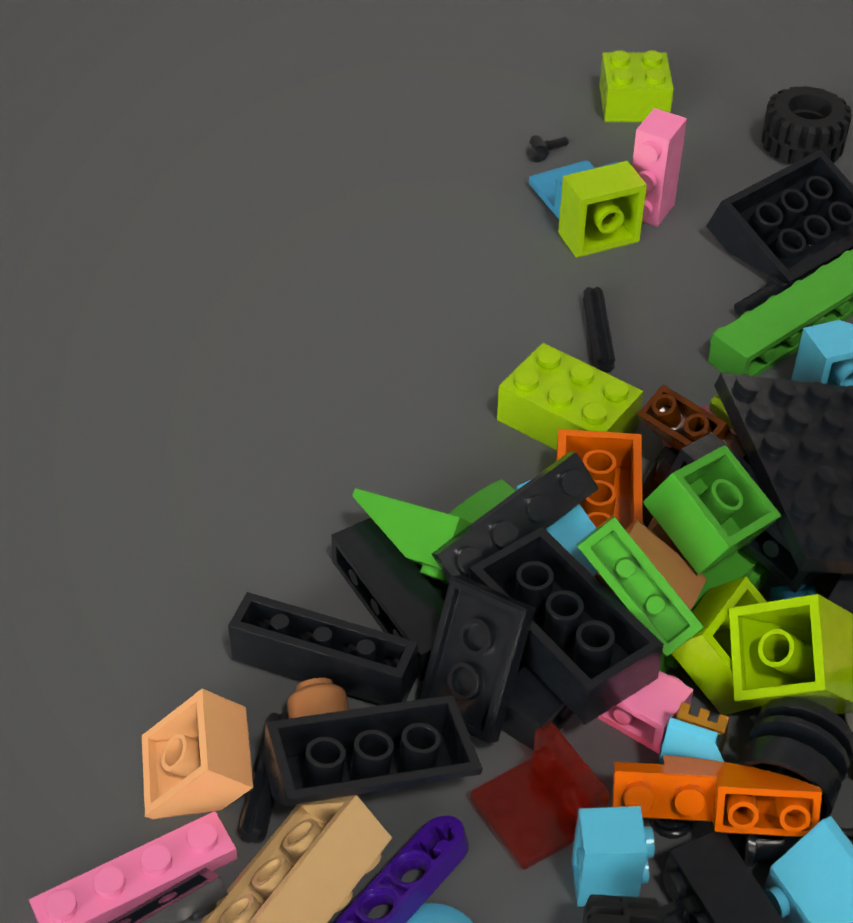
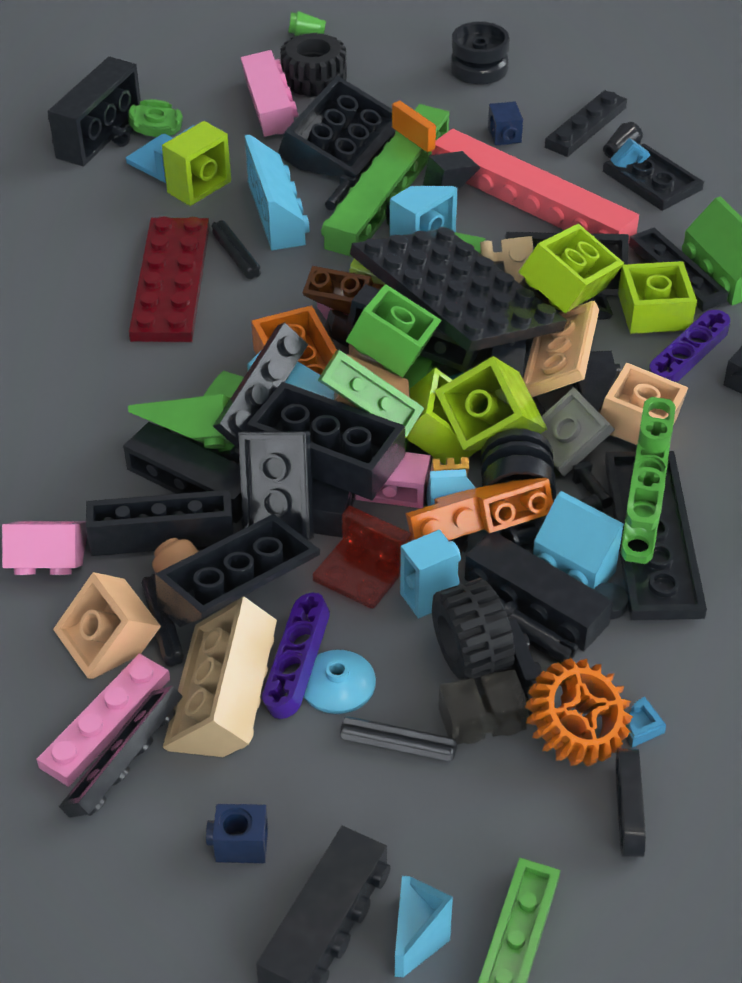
camera: 25 degrees left, 0 degrees up
(180, 625) = (43, 545): none -> bright pink slope
(505, 114) = (86, 114): none -> black brick
(506, 331) = (170, 280): none -> dark red plate
(564, 393) = (233, 298): lime brick -> none
(588, 139) = (155, 118): none -> bright green tile
(634, 85) = (172, 69): lime brick -> none
(658, 161) = (225, 112): bright pink brick -> none
(676, 278) = (275, 196): none -> medium azure slope
(734, 145) = (269, 92): none -> bright pink brick
(822, 75) = (305, 24): none -> bright green cone

